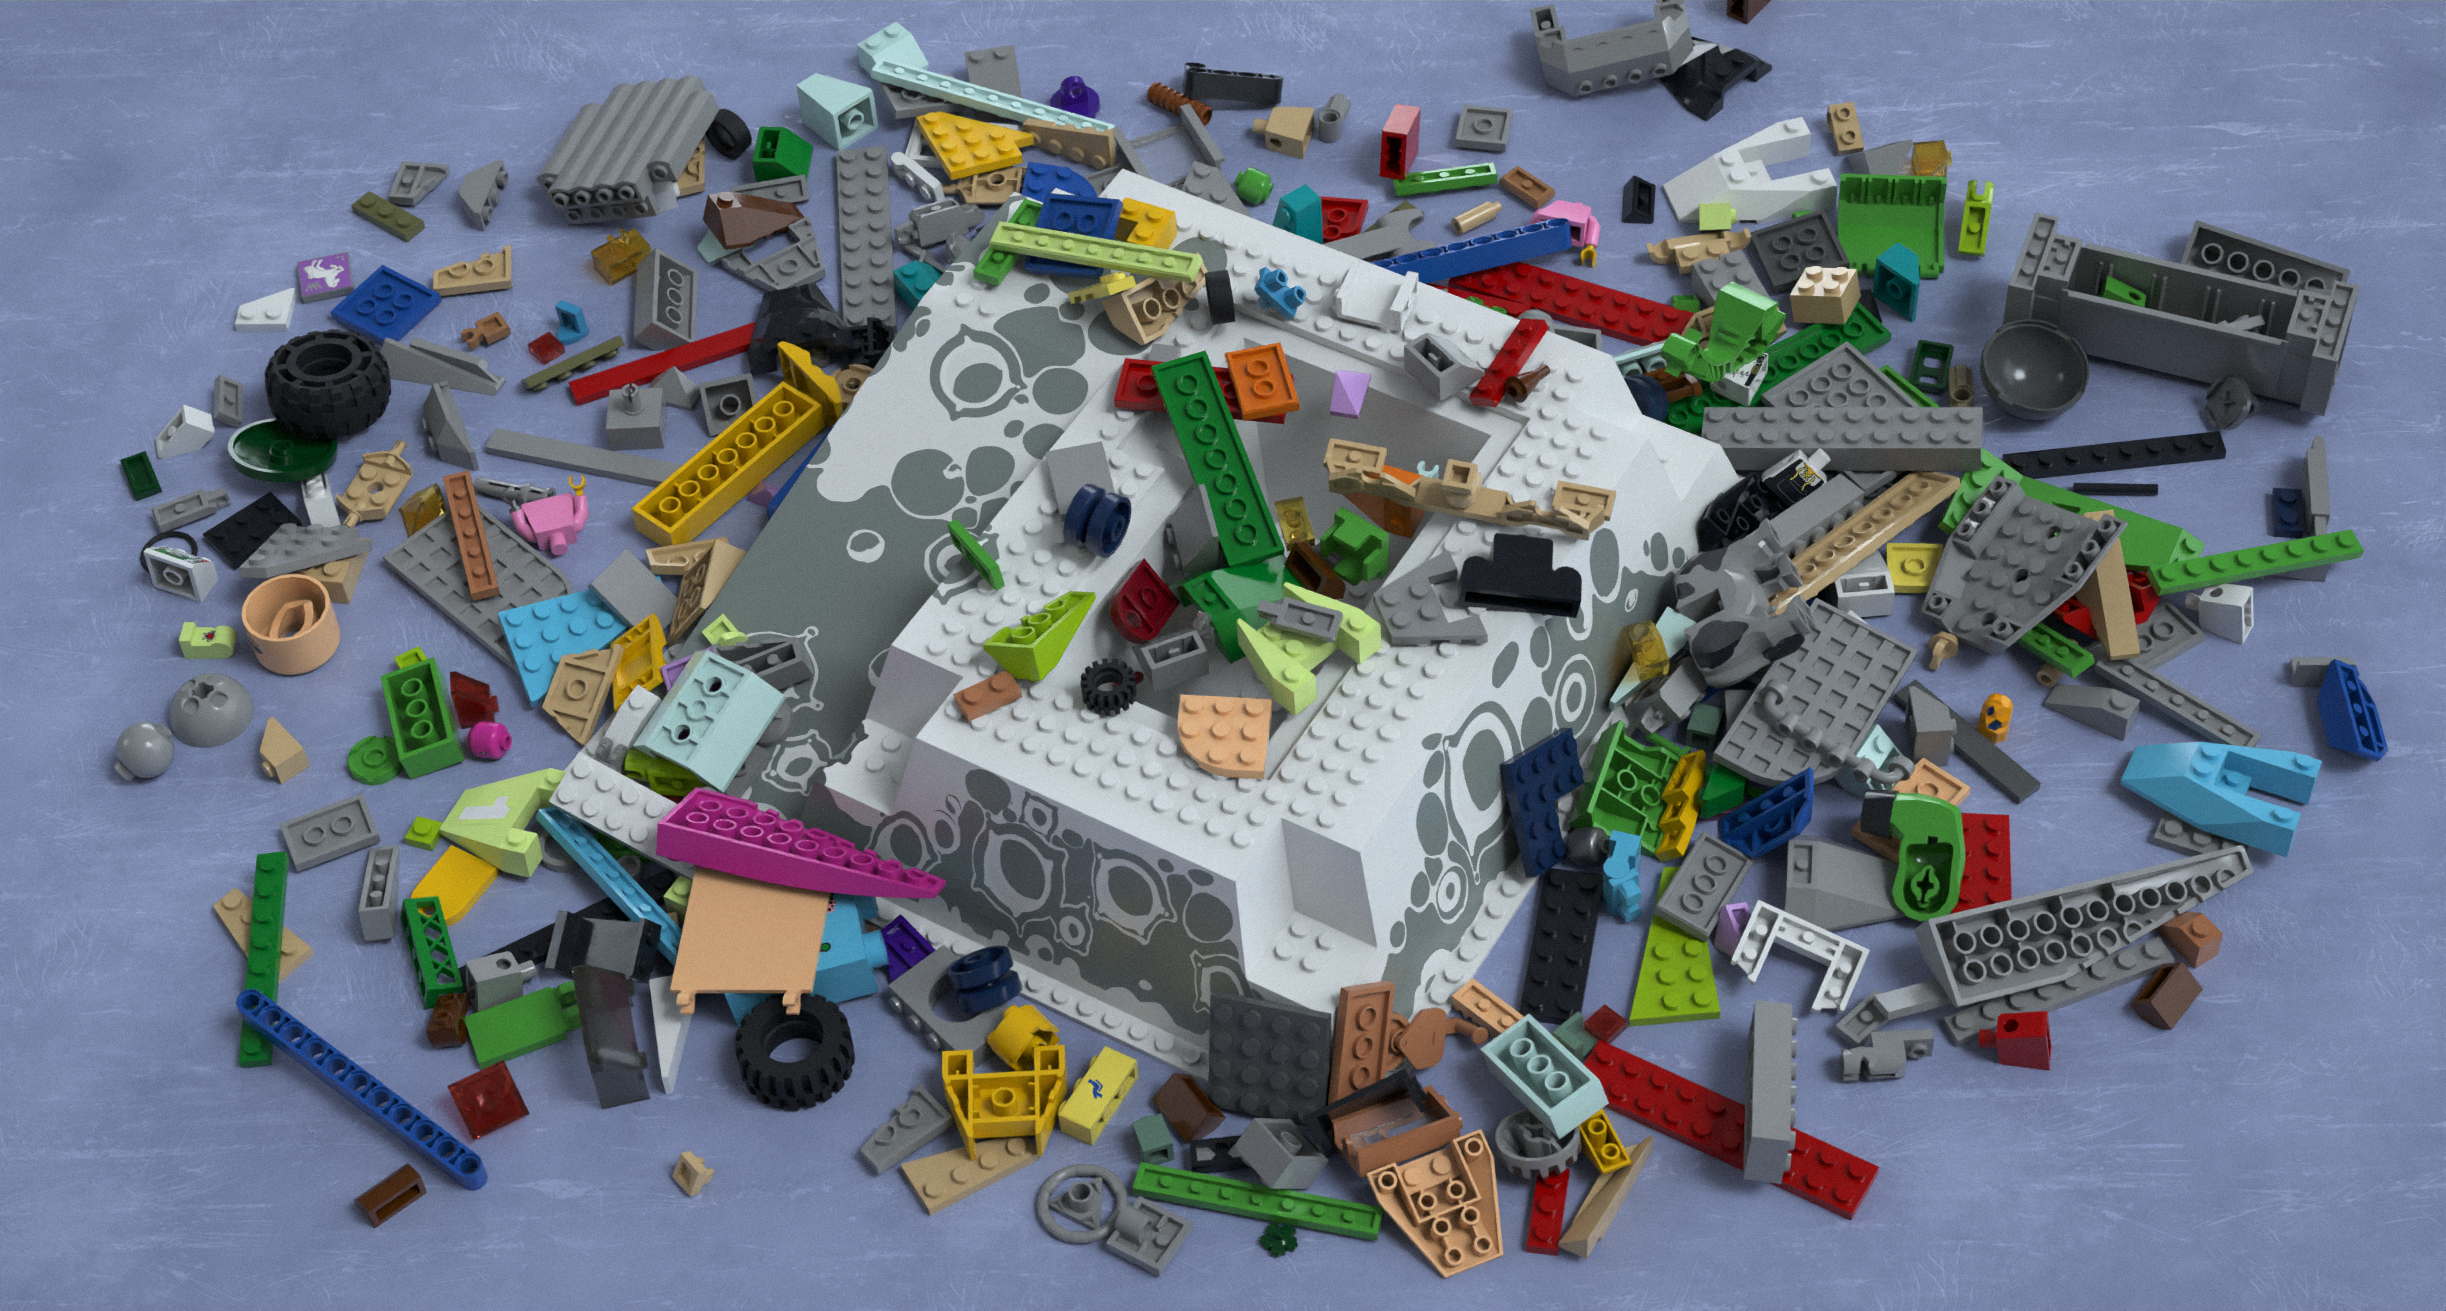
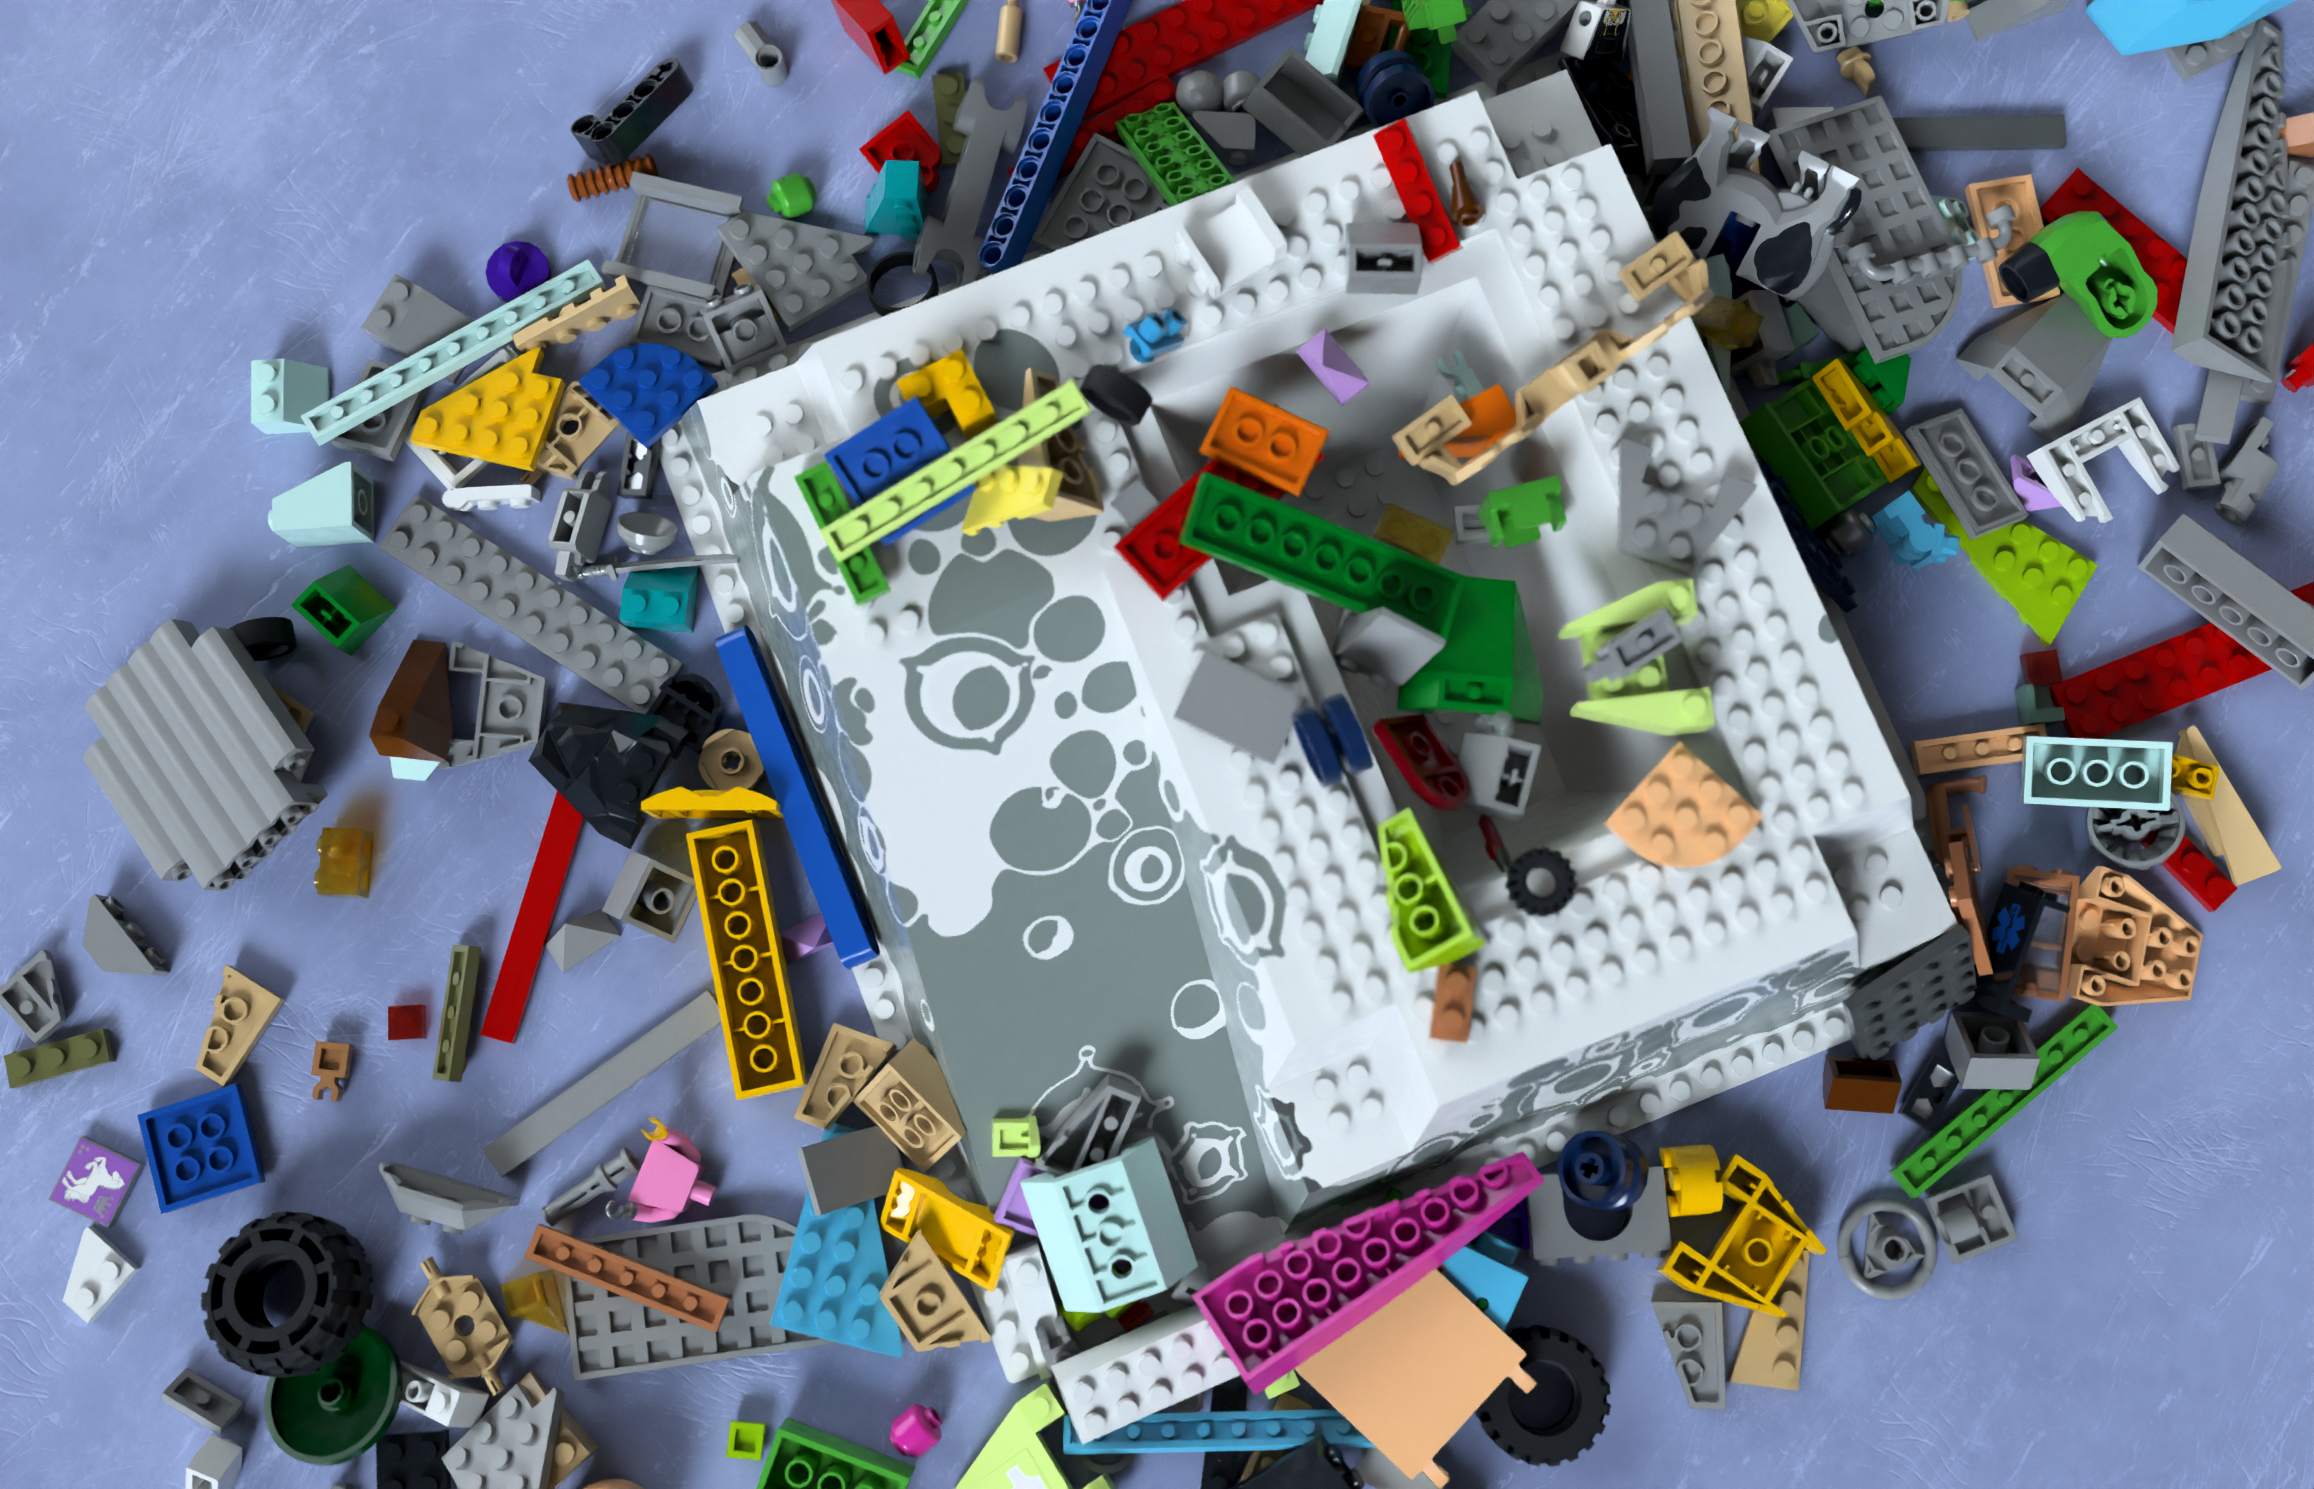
camera: 55 degrees left, 30 degrees up
(434, 363) = (341, 1151): light grey wedge -> none
(472, 700) = (856, 1416): clear red slope -> none
(572, 323) = (400, 979): dark azure tile -> none
(636, 418) = (596, 1003): light grey brick -> none
(665, 302) = (452, 864): light grey slope -> none
(786, 189) = (383, 655): light grey plate -> none
(976, 555) = (1260, 884): bright green tile -> none
(1097, 1095) = (1789, 1154): light yellow brick -> none
(1153, 1140) = (1874, 1142): sand green brick -> none
(1279, 1239) = (2048, 1107): dark green plant -> none
(1287, 130) = (742, 107): tan torso -> none
(1314, 572) = (1501, 567): reddish brown brick -> none
(1520, 579) = (1710, 400): black brick -> none
(1562, 945) = (1928, 638): black plate -> none
(1771, 817) = (1958, 363): blue wedge -> none
(1928, 728) = (1953, 157): light grey slope -> none
(1995, 717) = (1974, 93): light orange rock -> none

